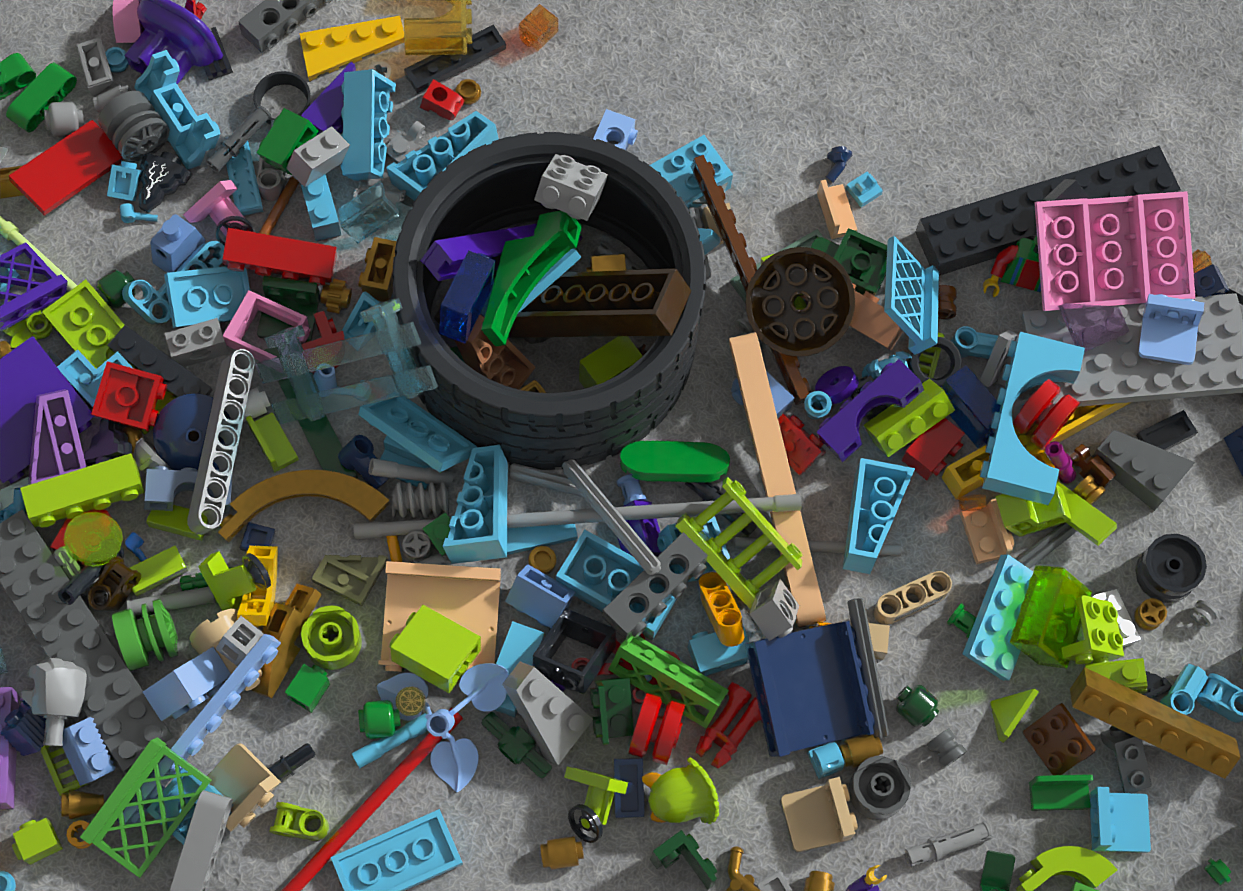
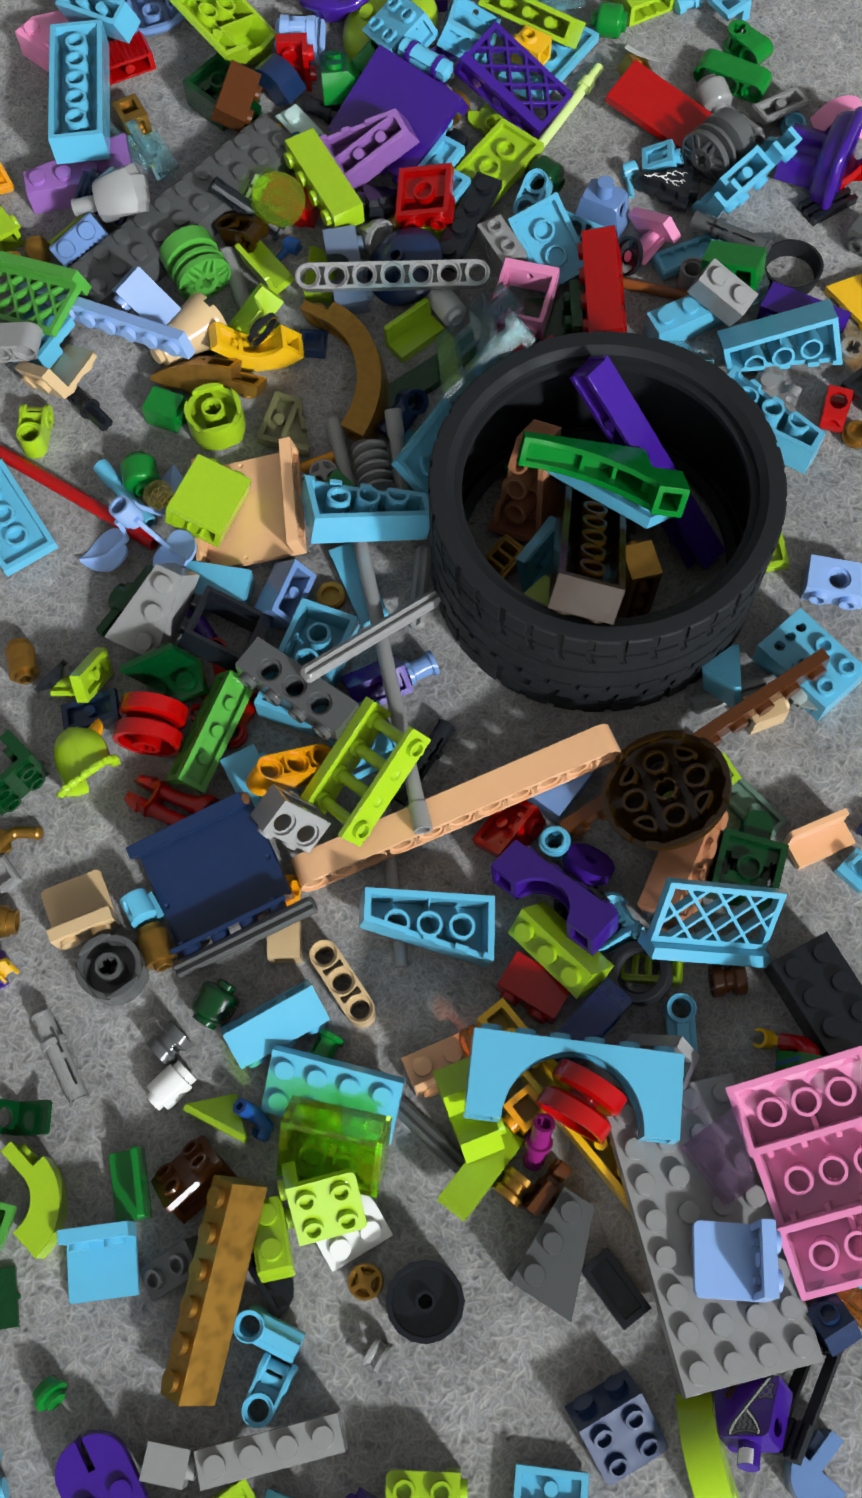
camera: 90 degrees right, 0 degrees up
(239, 640) = (181, 315): light grey brick -> none
(466, 296) = (558, 406): clear blue window -> none
(546, 367) = (537, 555): none -> medium azure plate
(570, 187) = (714, 481): light grey brick -> none
(674, 461) = (459, 703): green tile -> none
(941, 655) = (273, 1023): none -> medium azure brick
(983, 750) = (170, 1086): none -> white brick
(1019, 680) = (255, 1115): none -> blue arm

